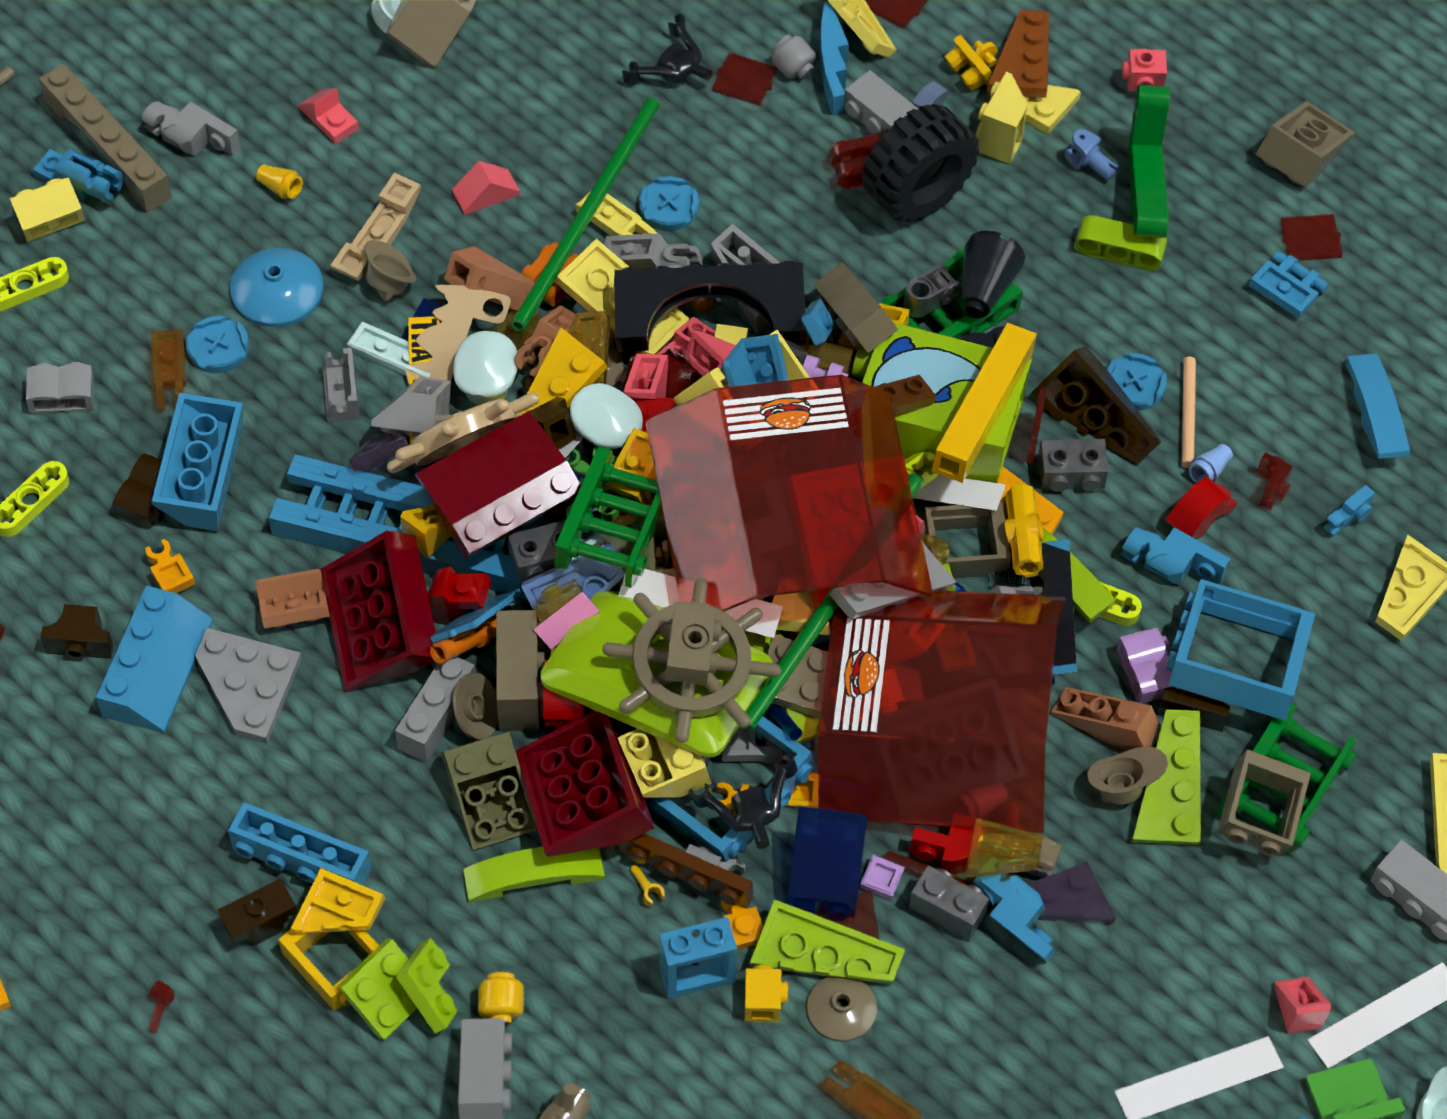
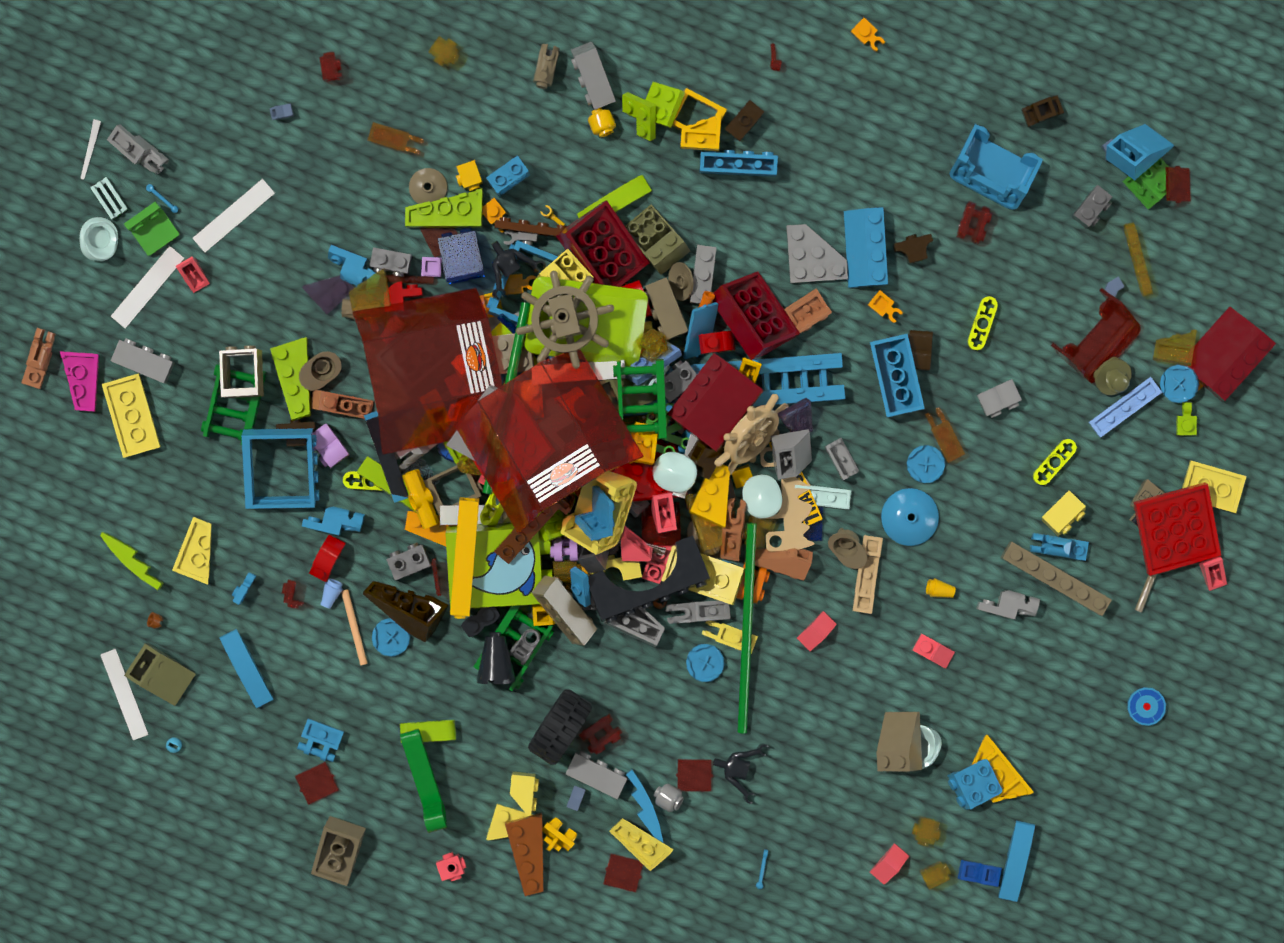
camera: 165 degrees right, 30 degrees up
(558, 624) = (648, 333): bright pink sticker -> none
(1087, 154) = (467, 791): medium blue piece -> none

